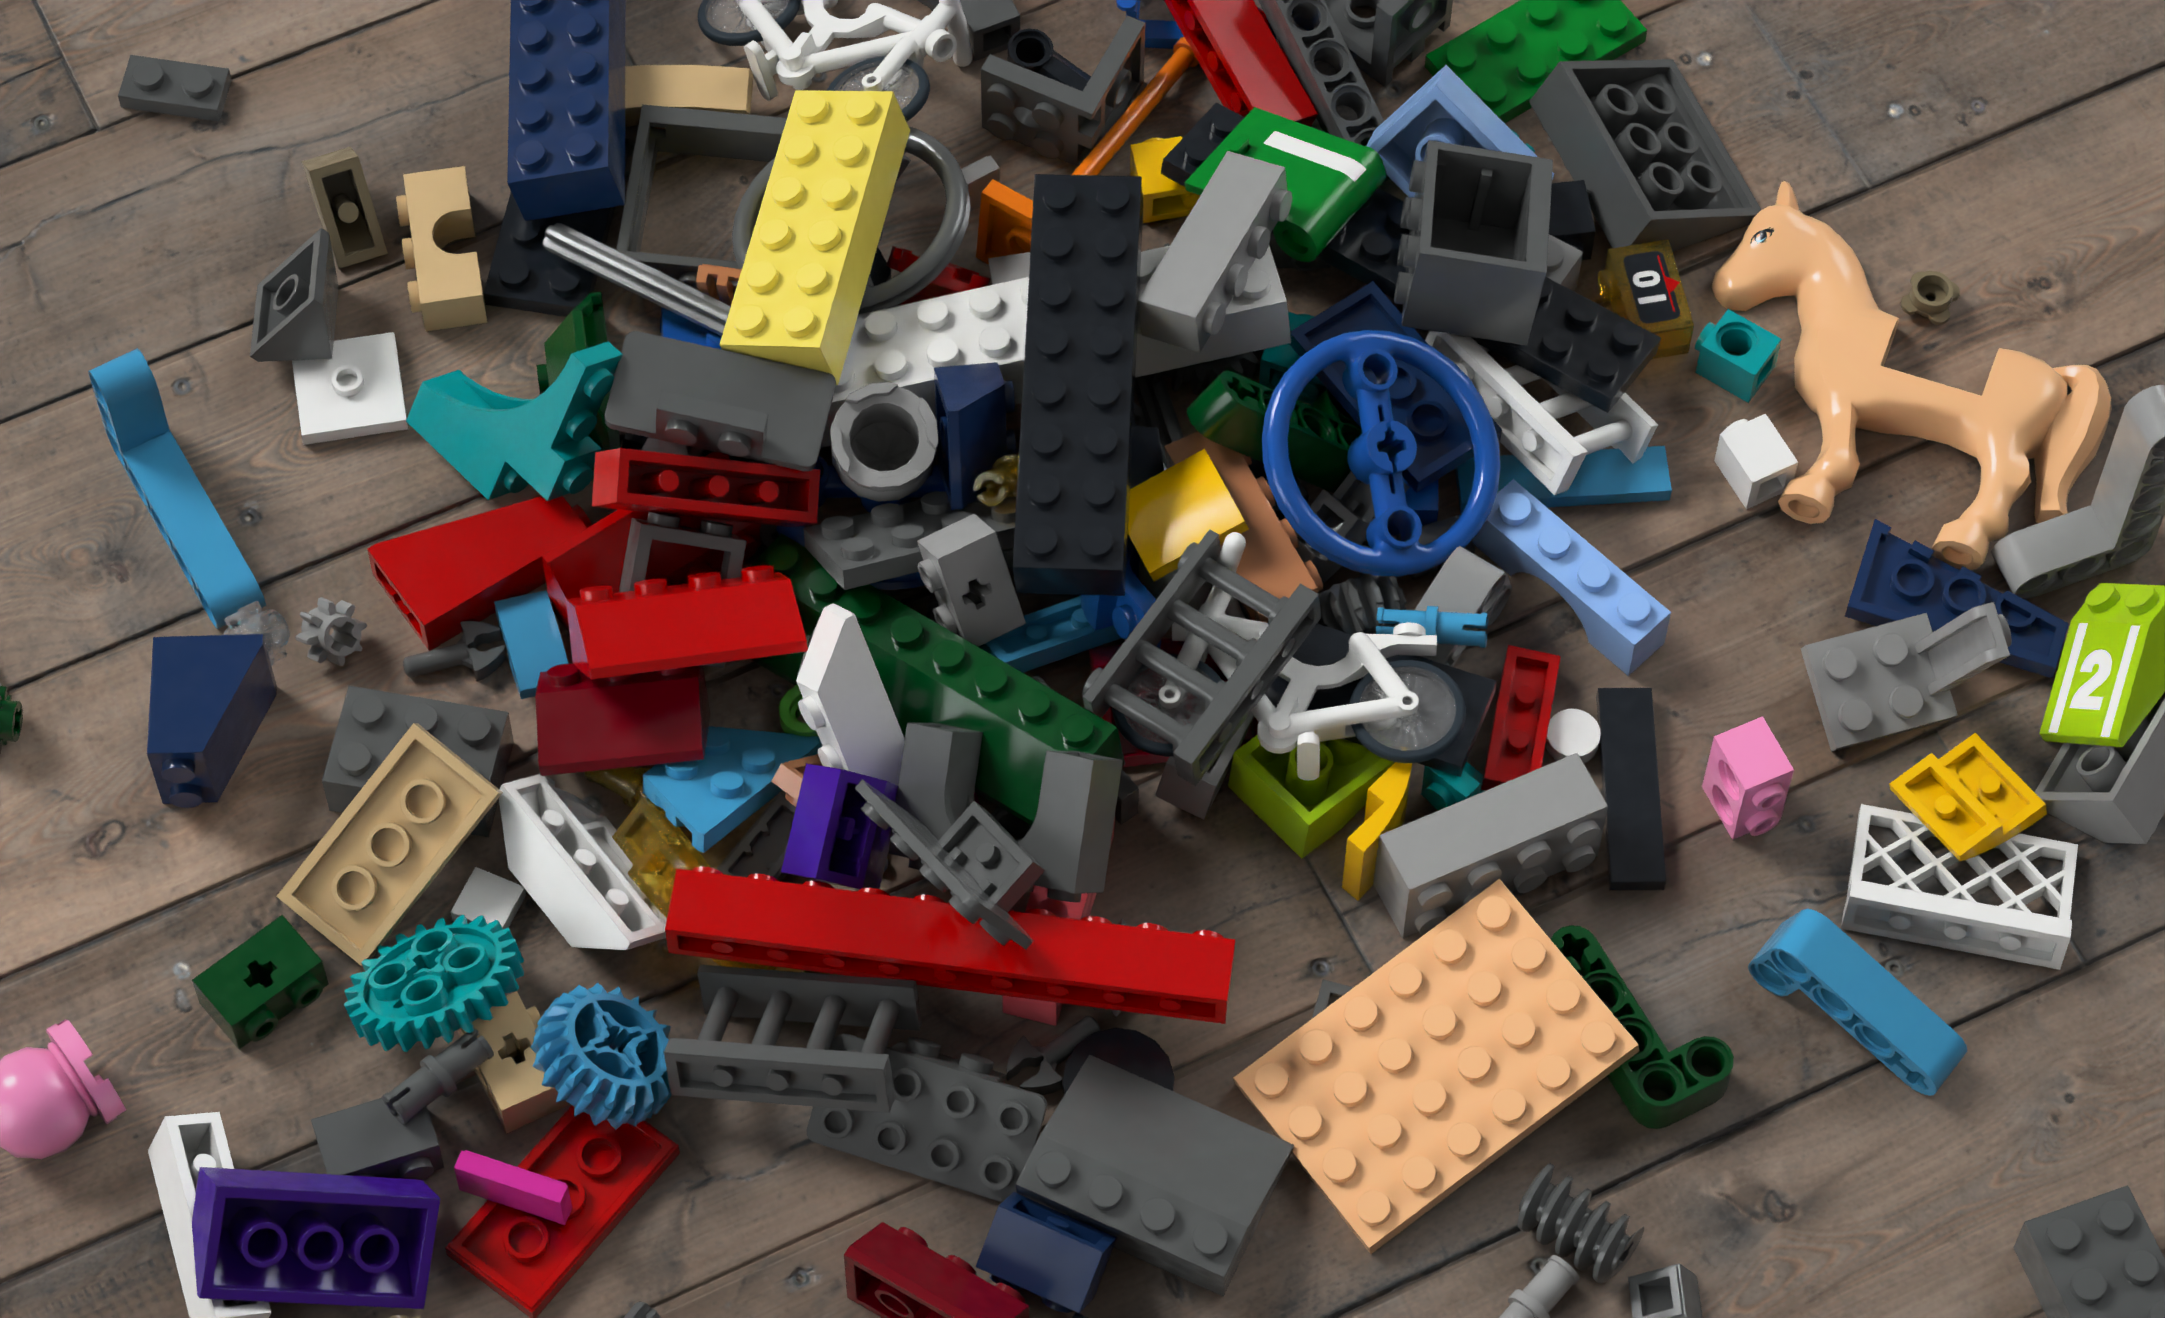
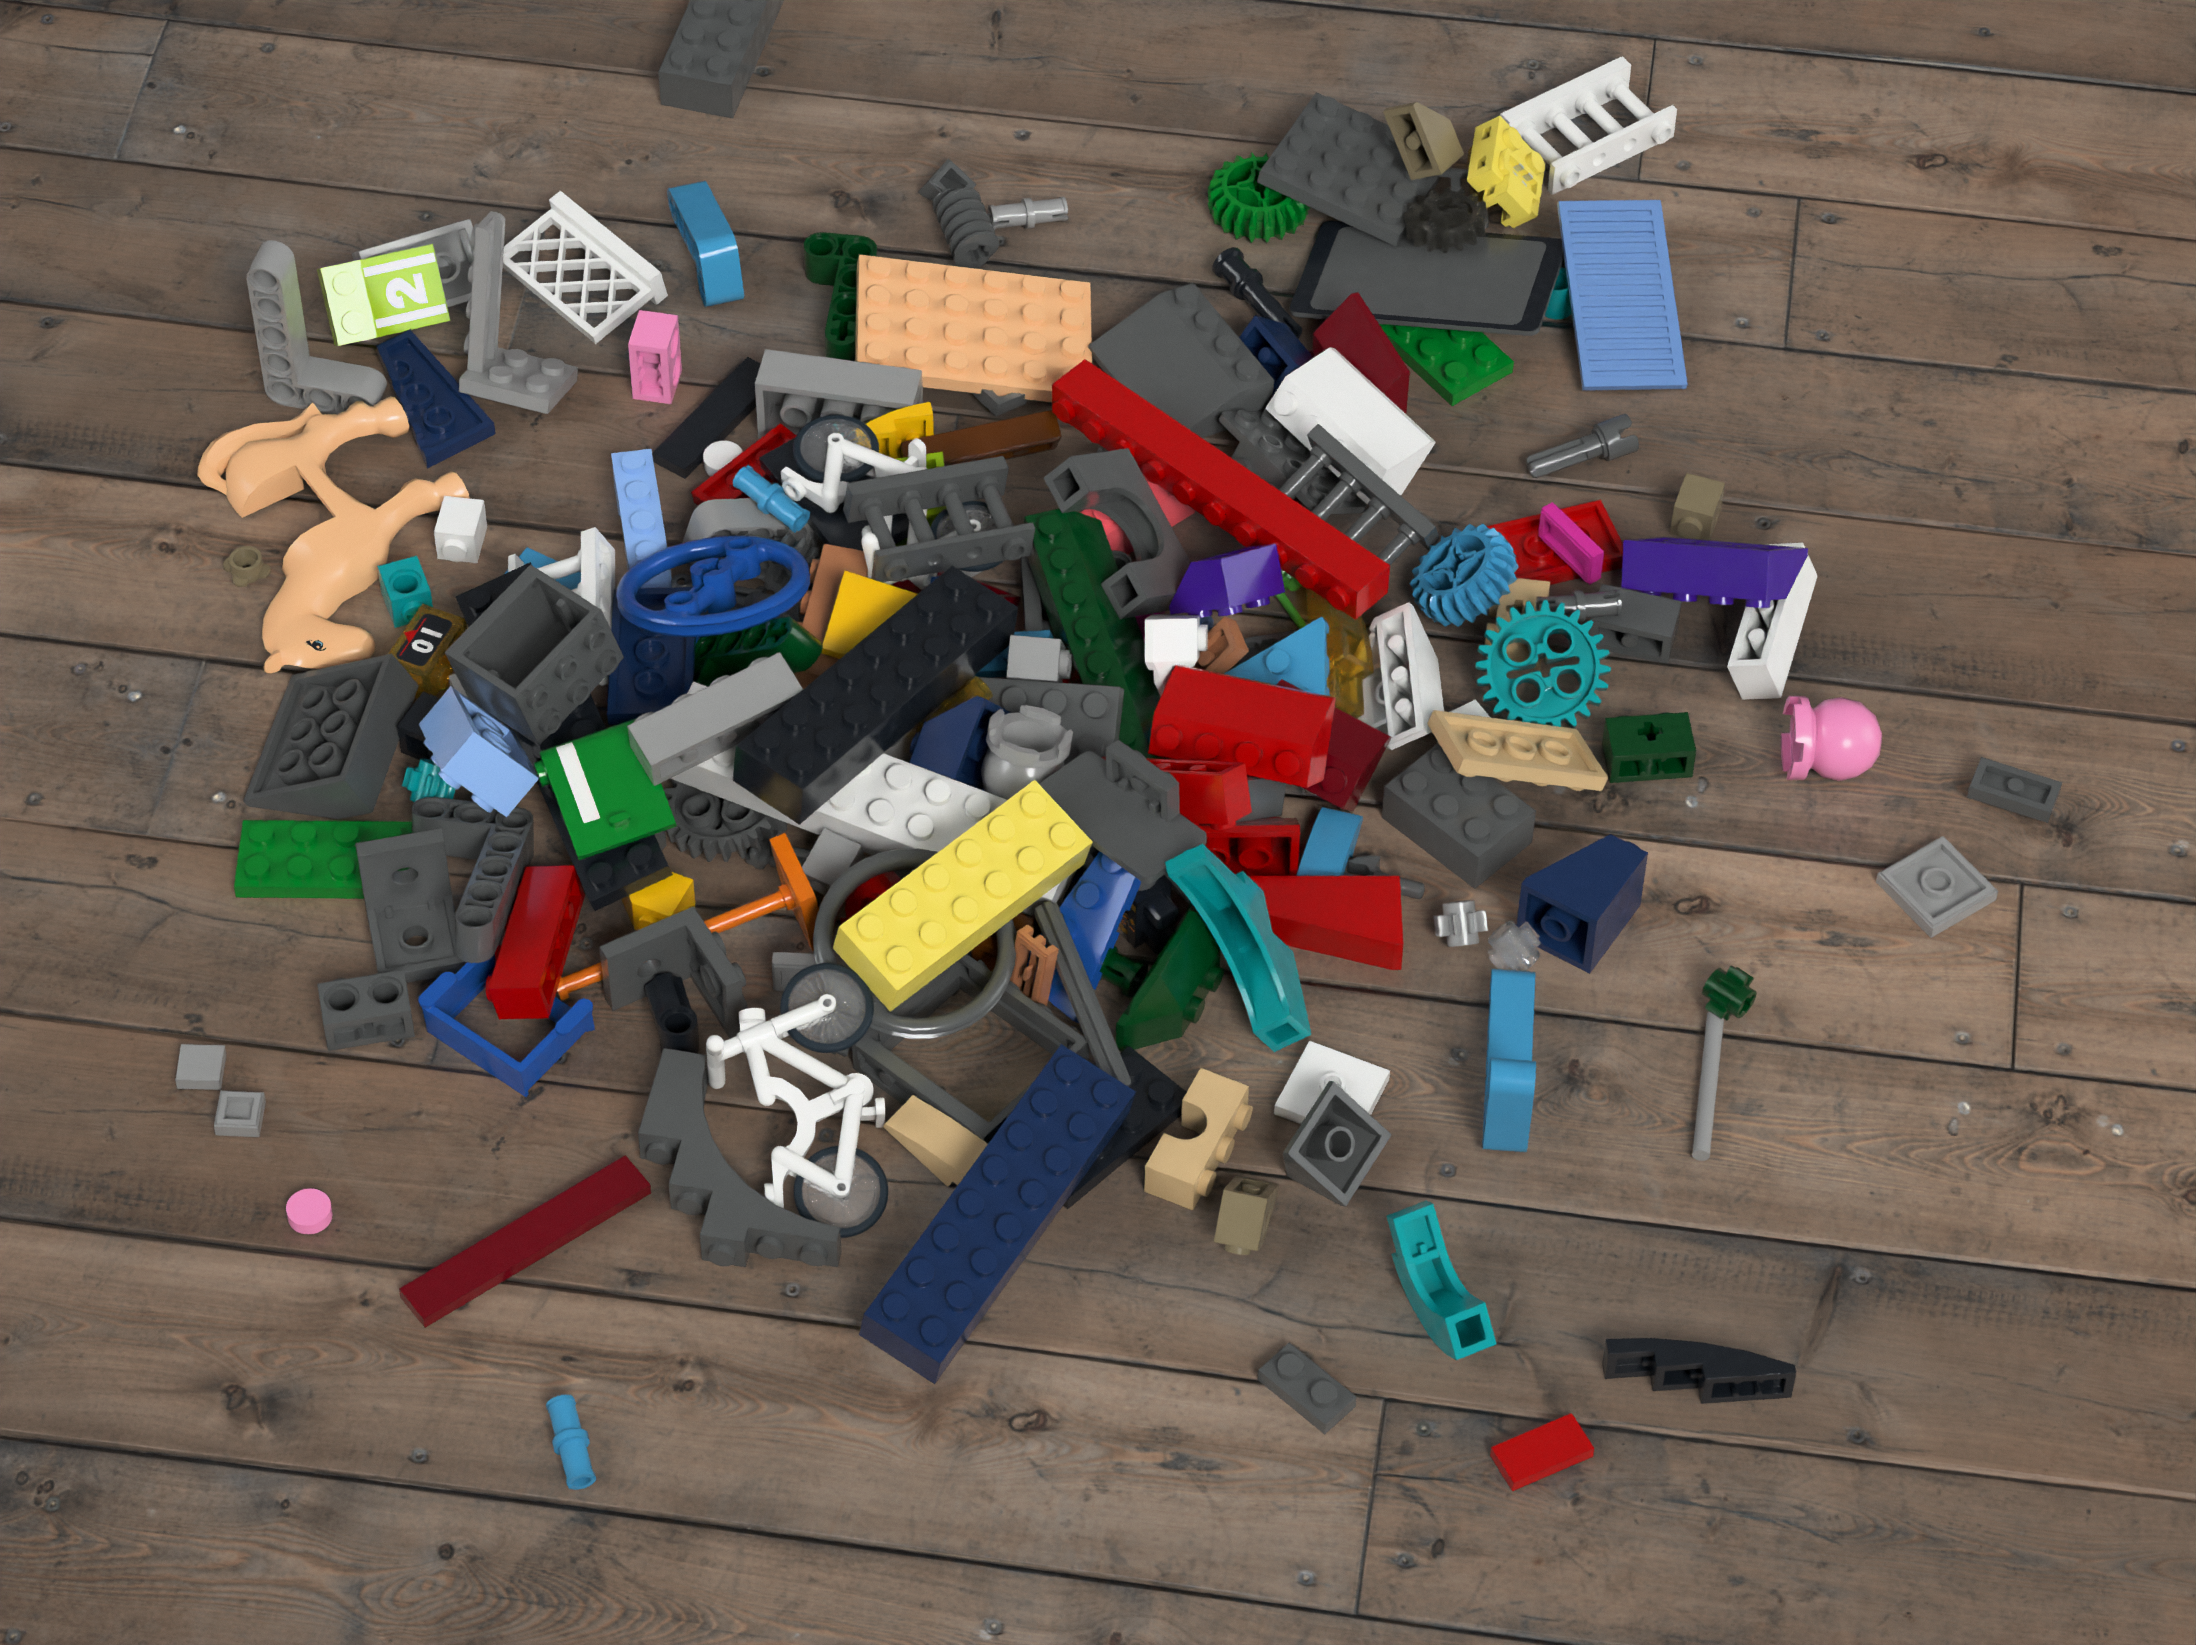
camera: 145 degrees left, 10 degrees down
(88, 223) = (1439, 1299): none -> teal arch
(883, 1180) = (1354, 413): none -> white slope
(972, 859) = (1184, 486): dark grey bracket -> none
(1290, 906) = (1004, 438): none -> reddish brown slope
(1969, 798) = (536, 301): yellow slope -> none

